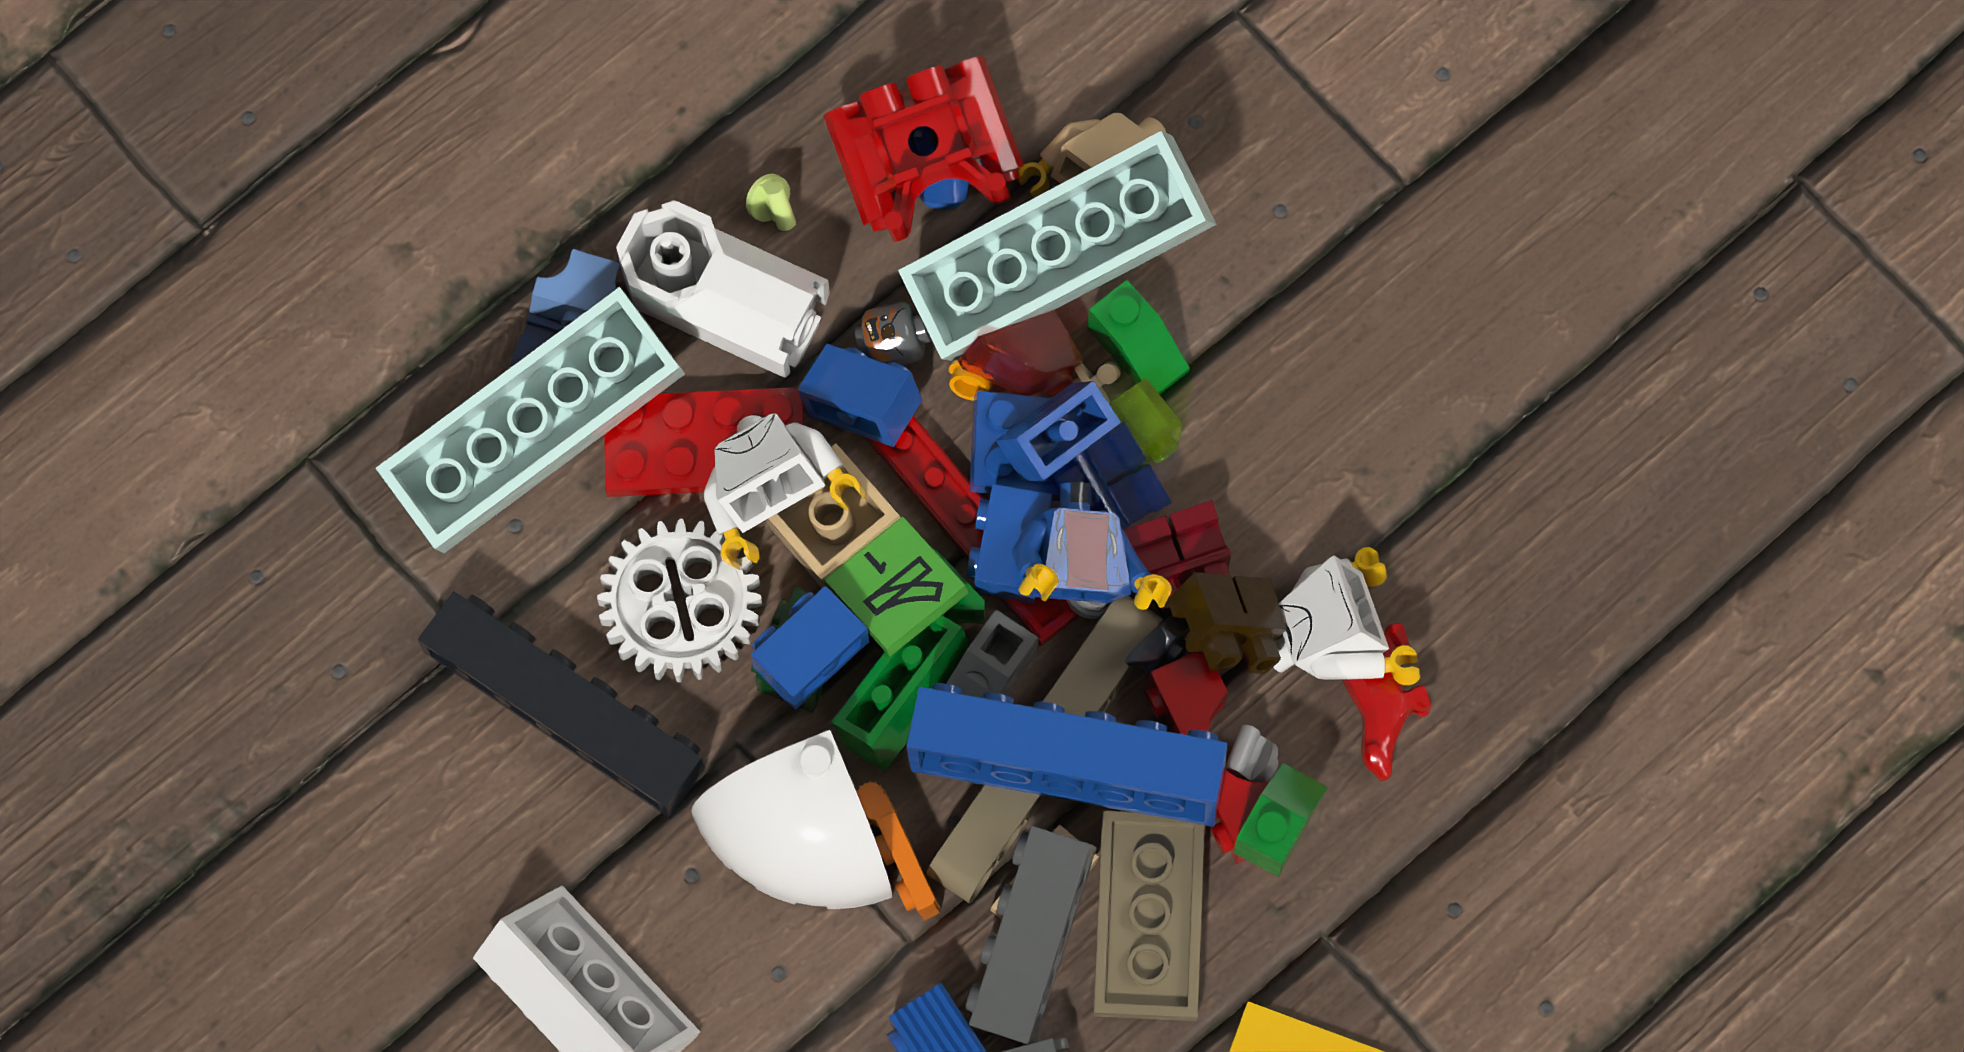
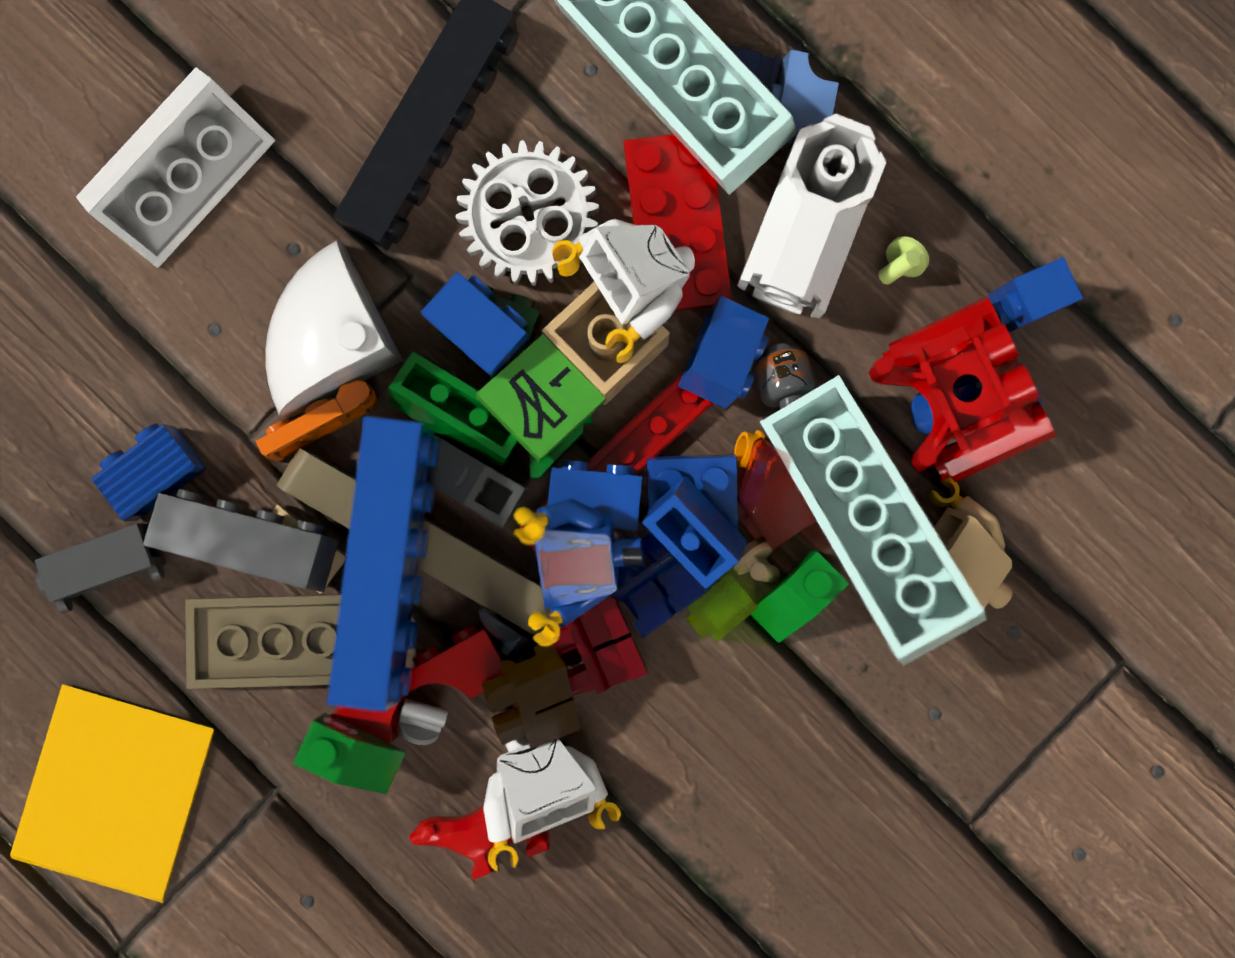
camera: 85 degrees right, 15 degrees up
(827, 65) = (1035, 295): none -> blue brick

